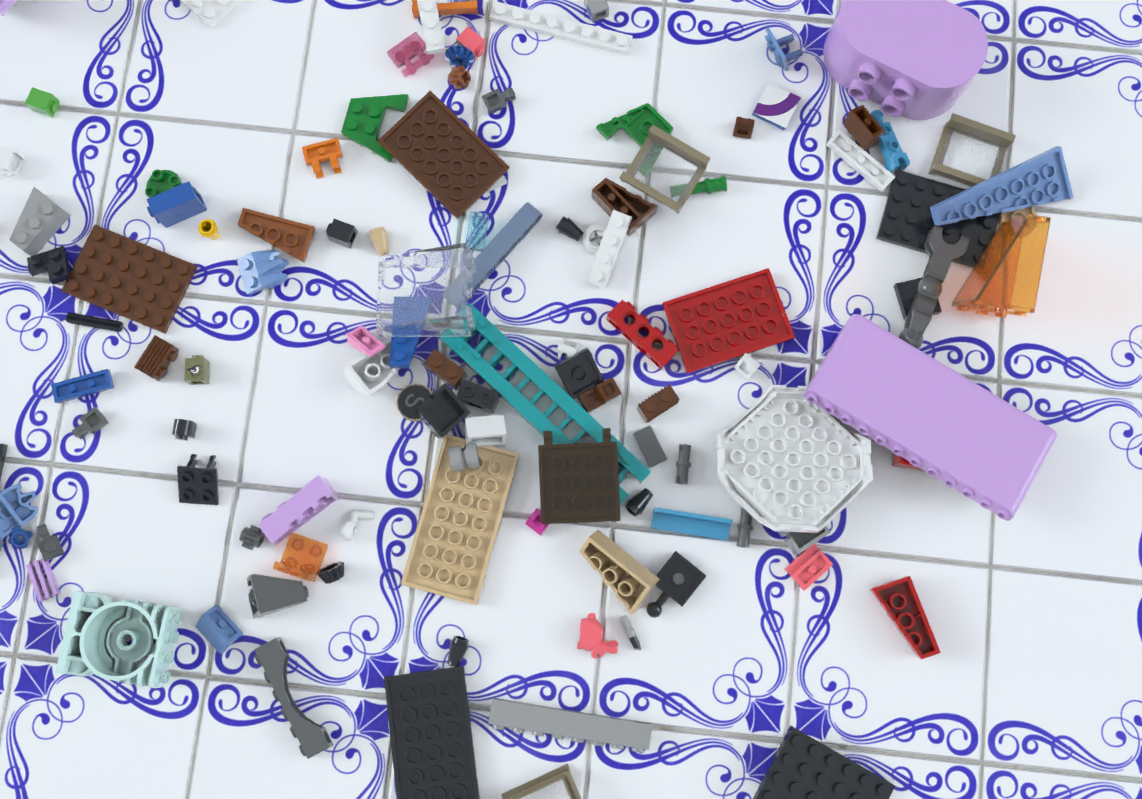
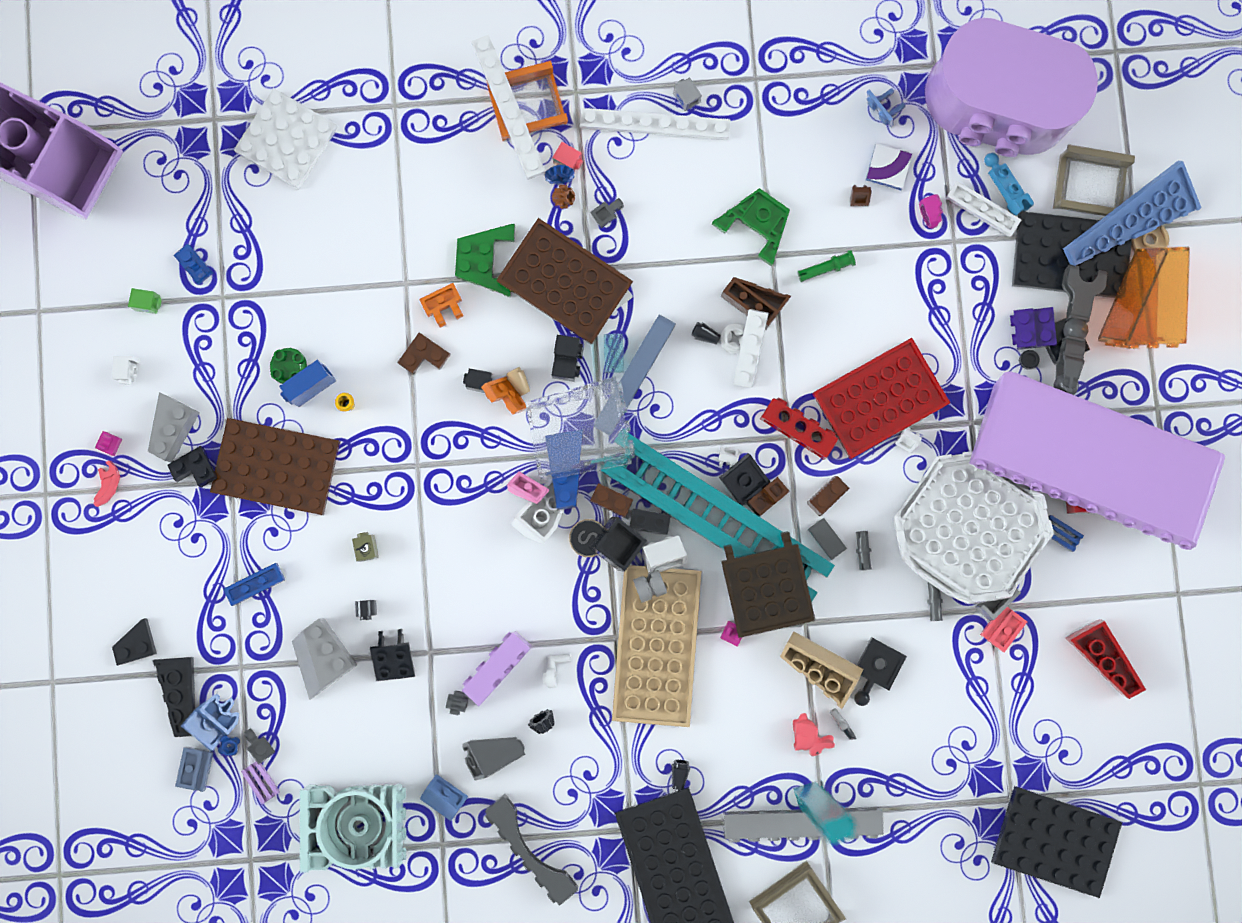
camera: 10 degrees left, 5 degrees up
(92, 422) = (272, 618): dark grey plate -> none
(94, 322) = (250, 517): black axle -> none
(97, 78) = (193, 264): none -> blue plate
(130, 468) = (321, 657): none -> light grey wedge
(157, 358) = (322, 543): reddish brown brick -> none
(262, 270) = (406, 433): medium blue plate -> none
(281, 233) = (419, 392): dark orange wing -> none
(294, 195) = (421, 349): none -> reddish brown plate
(302, 557) = (510, 713): clear orange bracket -> none
(362, 245) = (503, 390): none -> orange plate
(407, 50) = (503, 177): clear pink plate -> none
(431, 223) = (566, 357): none -> black brick
(585, 705) = (825, 813): none -> teal brick
(638, 503) = (826, 598): black cone -> none
(666, 169) = (791, 256): piece -> none
(691, 524) = (881, 608): dark azure panel -> none
(809, 152) = (931, 210): none -> dark pink rock
(863, 127) = (981, 175): reddish brown brick -> none
(880, 311) = (1029, 359): none -> black tile
(889, 281) = (1033, 328): none -> dark purple plate
(896, 495) = (1075, 541): none -> blue tile

